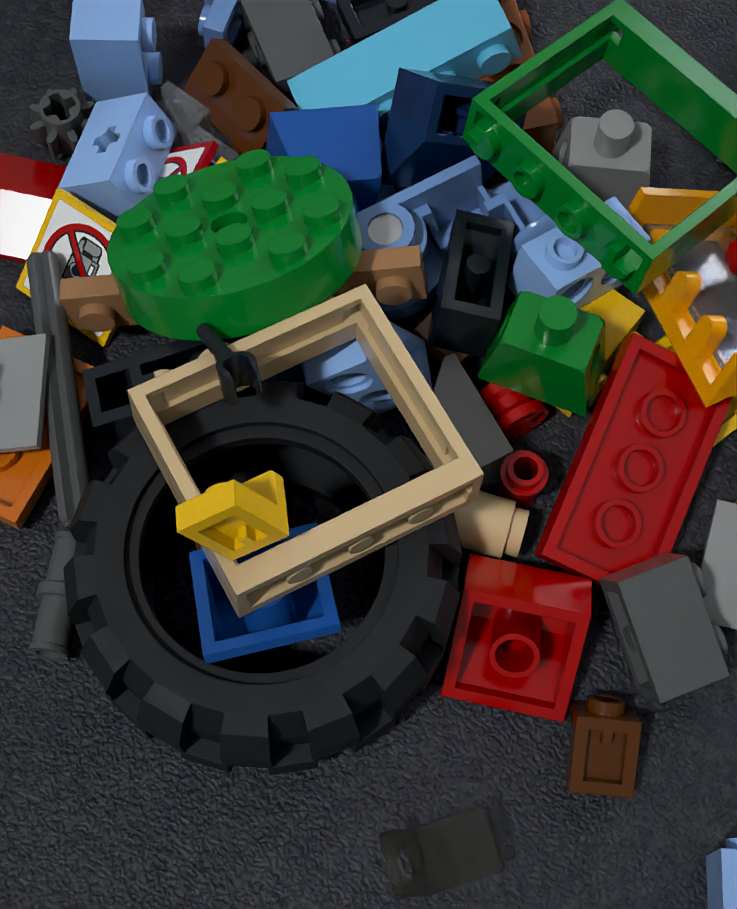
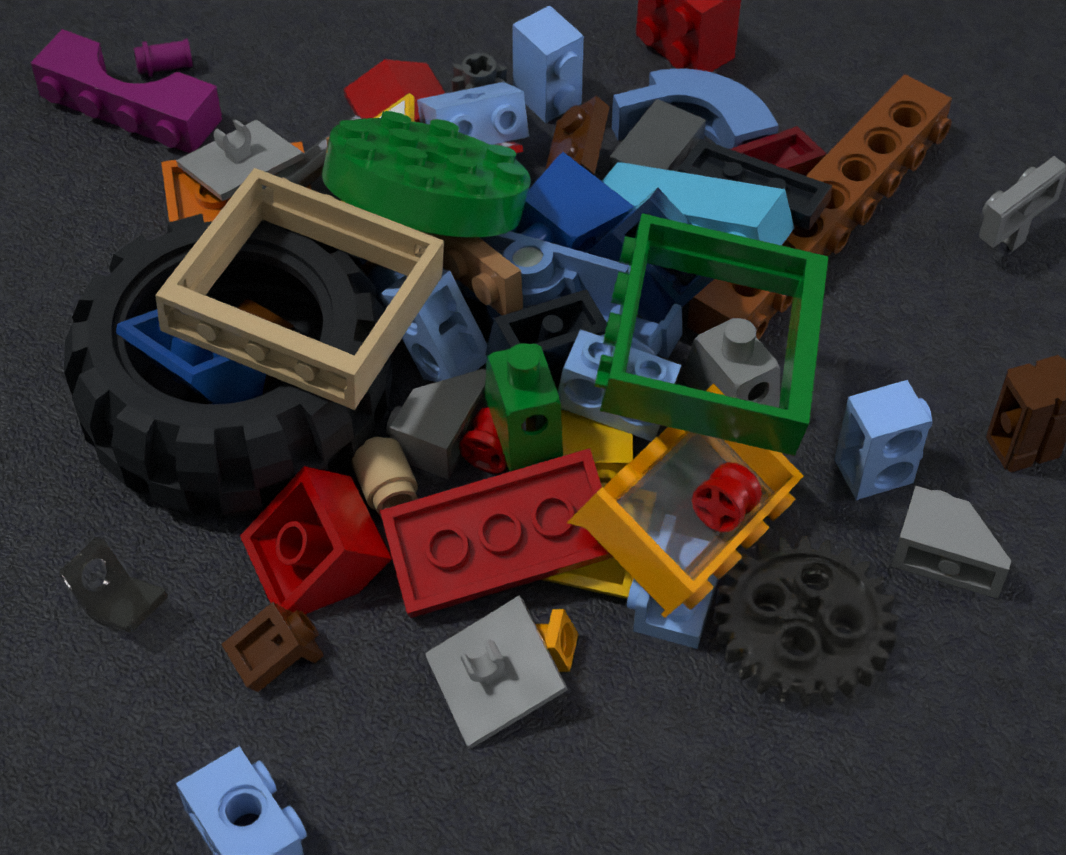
camera: 55 degrees right, 15 degrees down
(191, 121) = (537, 140): clear slope -> none
(233, 368) = (309, 203): black hand -> none
(236, 516) = (192, 249): yellow bracket -> none
(523, 477) = (434, 470): red pin -> none
(666, 626) = (390, 620): dark grey brick -> none

